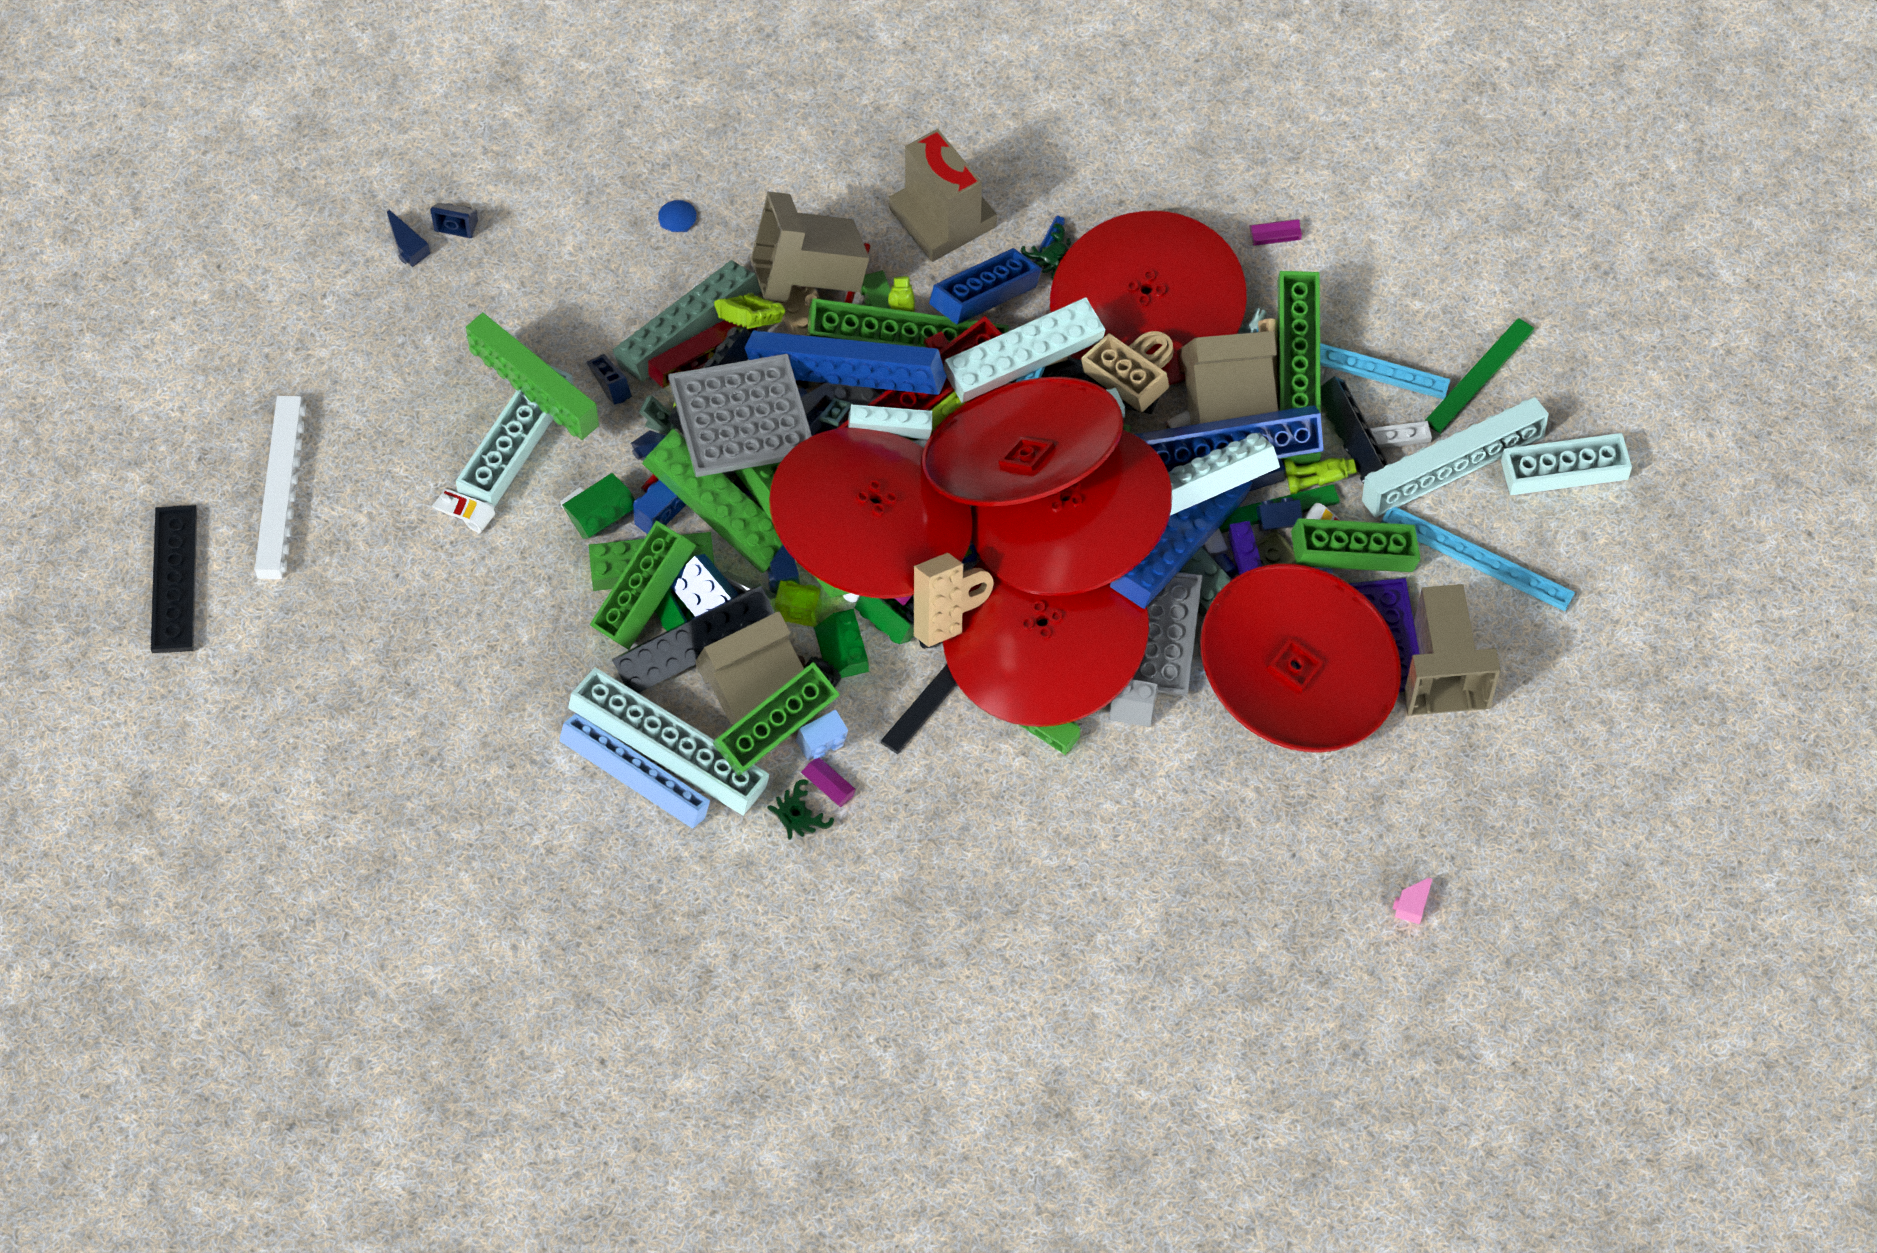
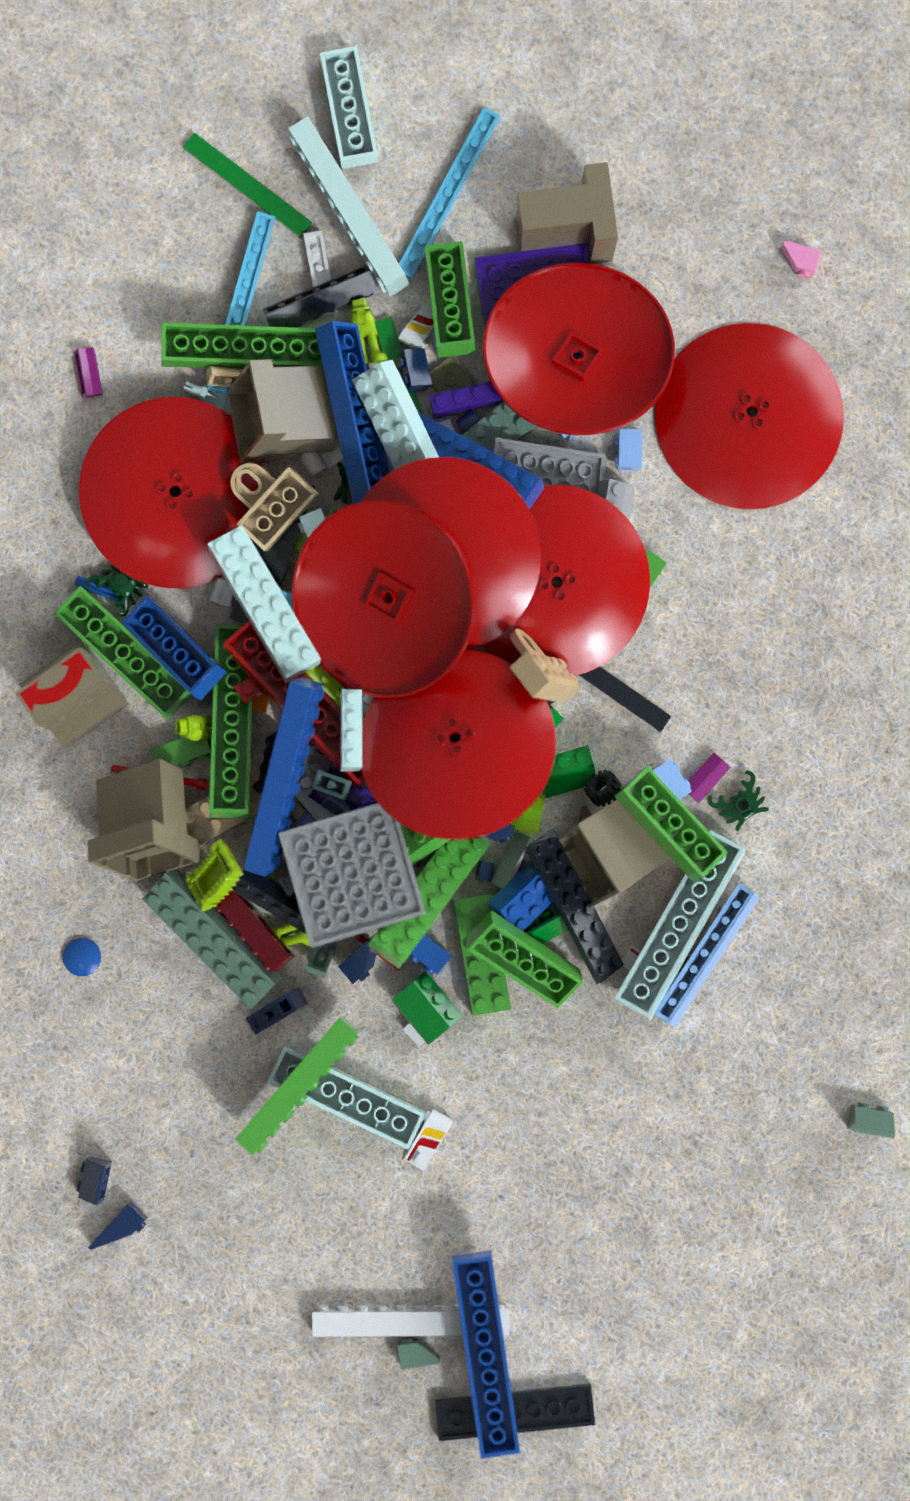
camera: 90 degrees left, 25 degrees up
(239, 540) = (485, 1354): none -> blue brick
(246, 489) = (415, 1354): none -> sand green slope
(438, 925) = (871, 1120): none -> sand green slope
(740, 567) = (485, 871): none -> dark blue brick
(1009, 228) = (122, 652): none -> bright green brick
(1193, 720) = (629, 449): none -> light blue brick
(1223, 885) = (743, 457): none -> red dish

